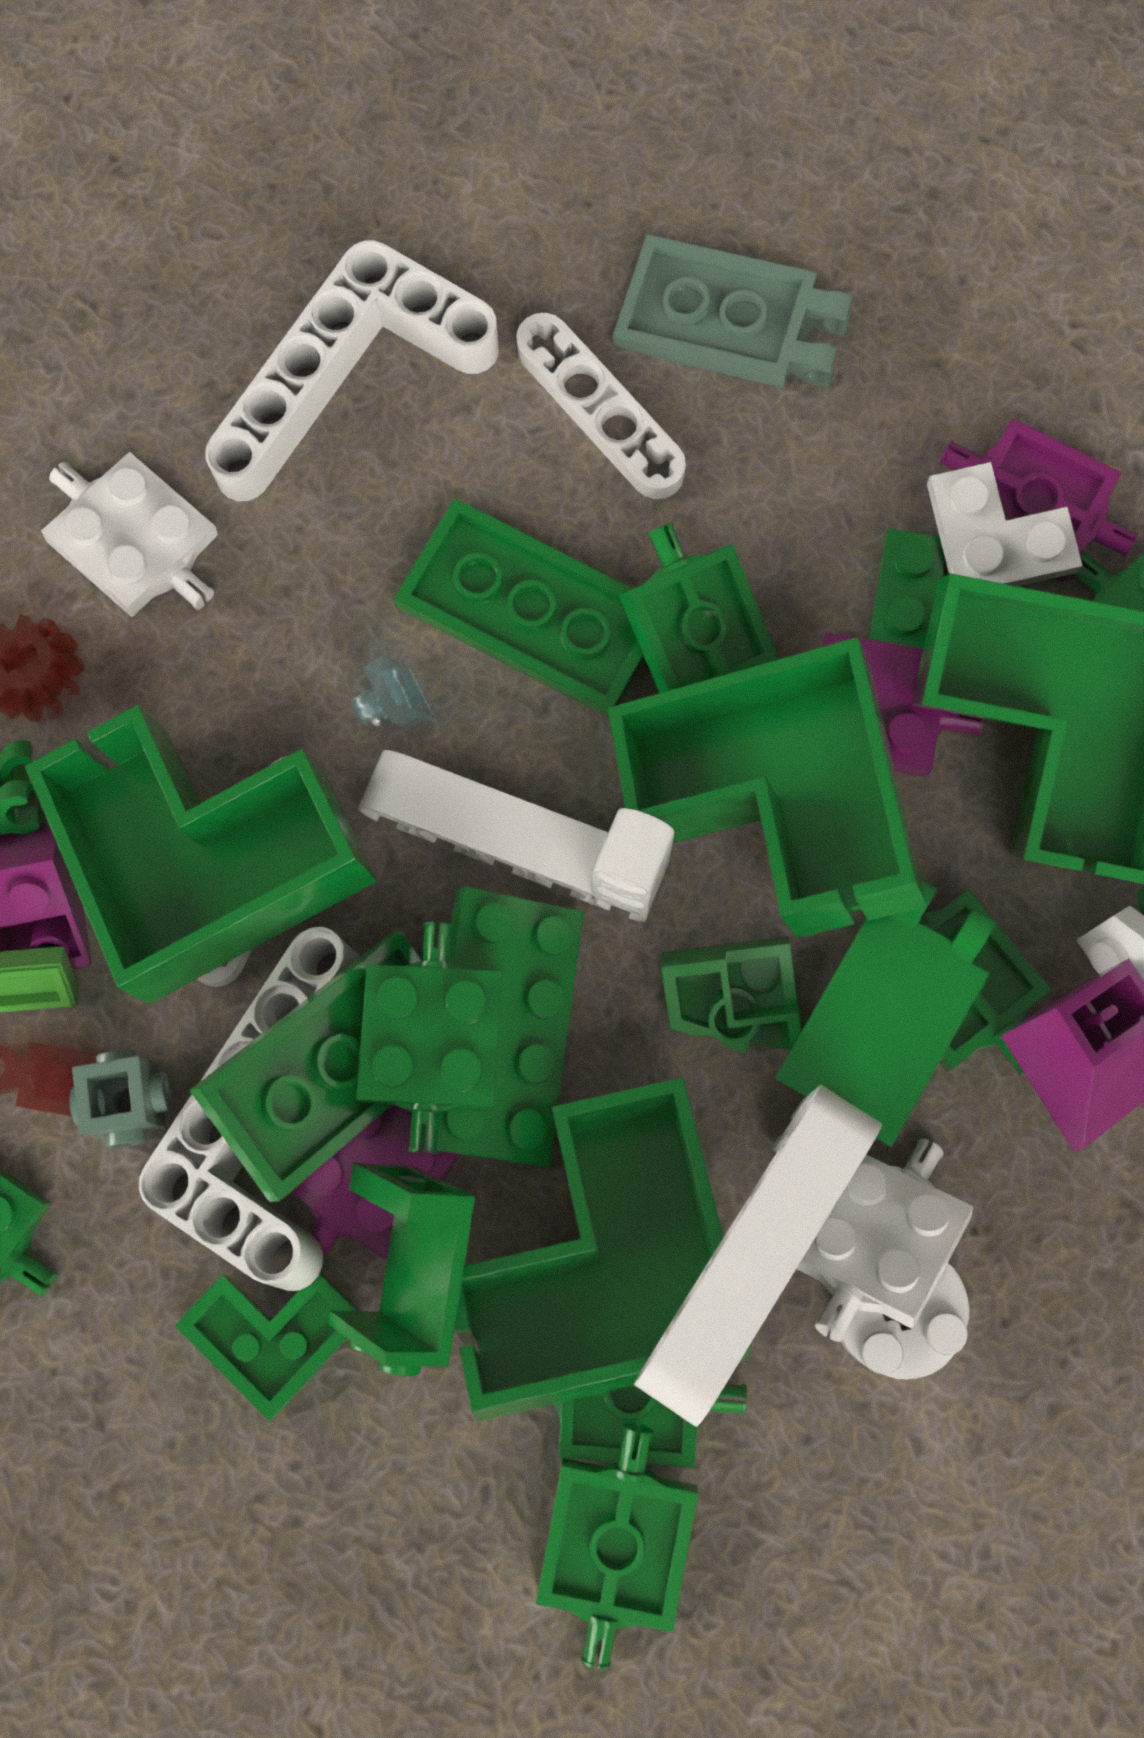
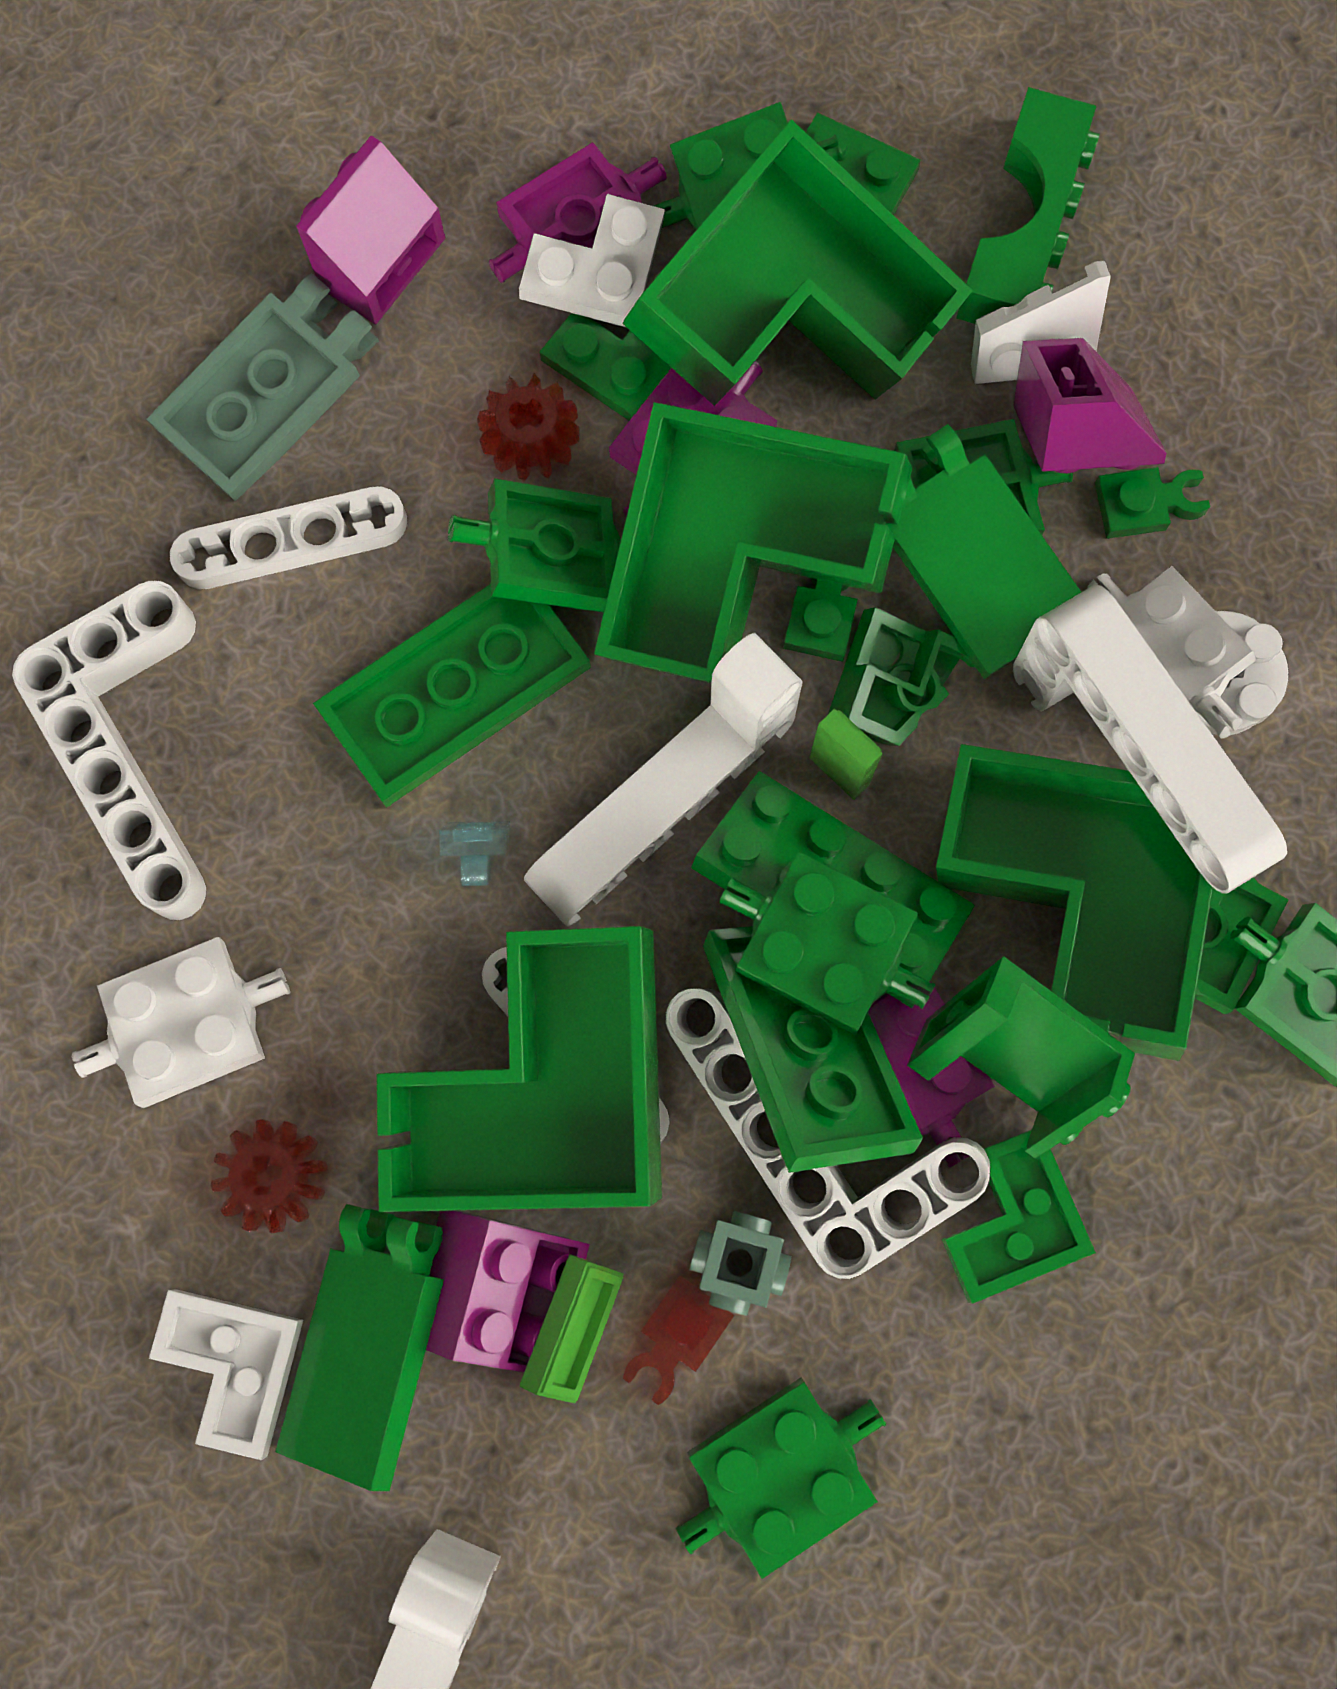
camera: 65 degrees left, 0 degrees up
(625, 976) = (845, 753): none -> bright green tile
(750, 904) = (821, 621): none -> green plate
(783, 551) = (530, 445): none -> clear red gear
(916, 323) = (370, 231): none -> slope
(1037, 1153) = (1141, 503): none -> green plate

